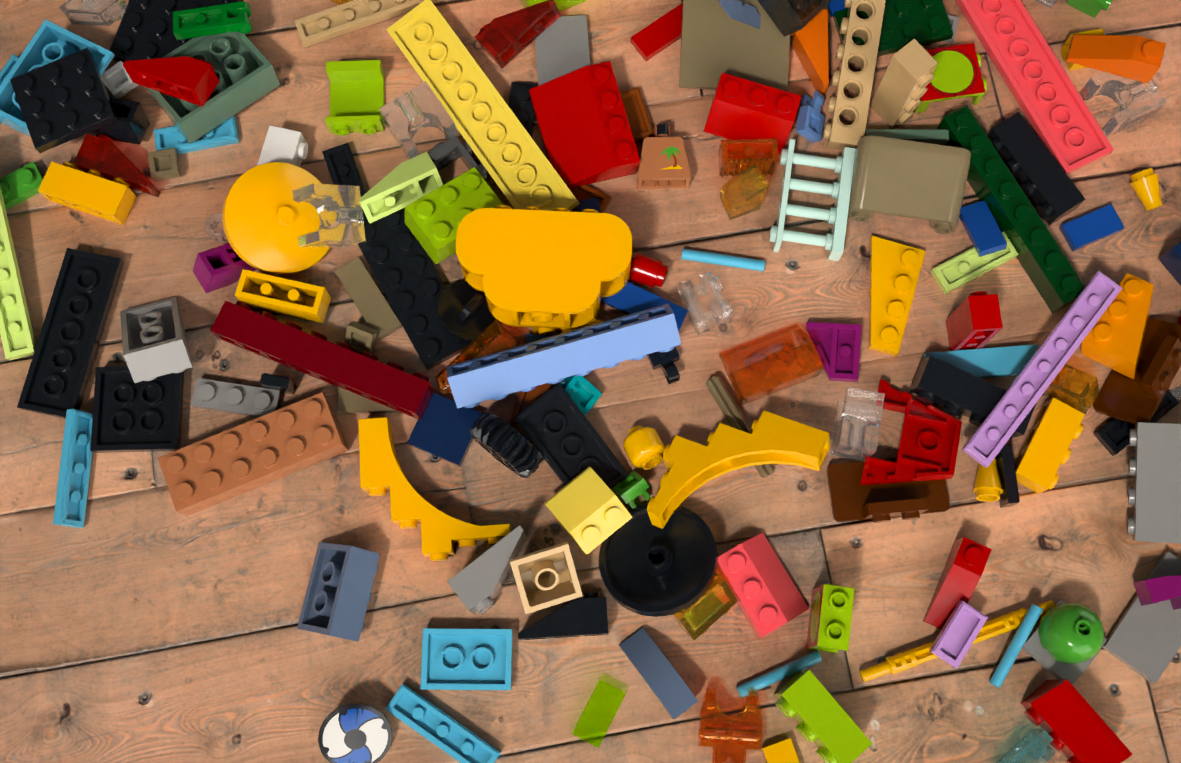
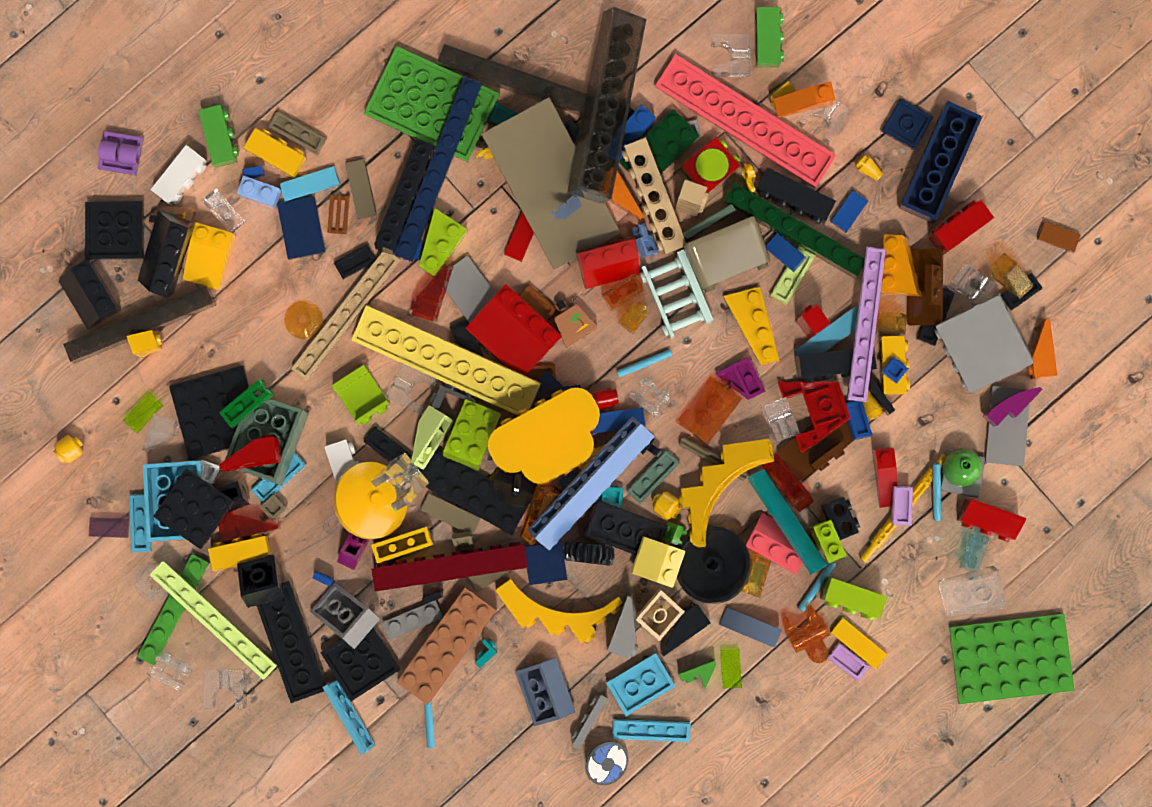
camera: 35 degrees left, 10 degrees up
(82, 233) = (260, 581): none -> black brick
(162, 281) = (323, 578): none -> blue tile
(167, 544) = (429, 725): none -> medium azure bar
(293, 498) = (485, 656): none -> teal bracket
(368, 664) = (588, 720): none -> light grey plate
(560, 692) = (704, 671): none -> bright green slope
(648, 403) = (653, 476): none -> sand green tile
(790, 563) = (787, 521): none -> teal tile
(819, 515) = (788, 484): none -> clear red slope
(872, 604) = (845, 516): none -> black brick
(959, 491) = (858, 421): none -> blue tile
(989, 109) = (748, 174): none -> yellow plate
(1048, 449) = (894, 370): none -> blue tile

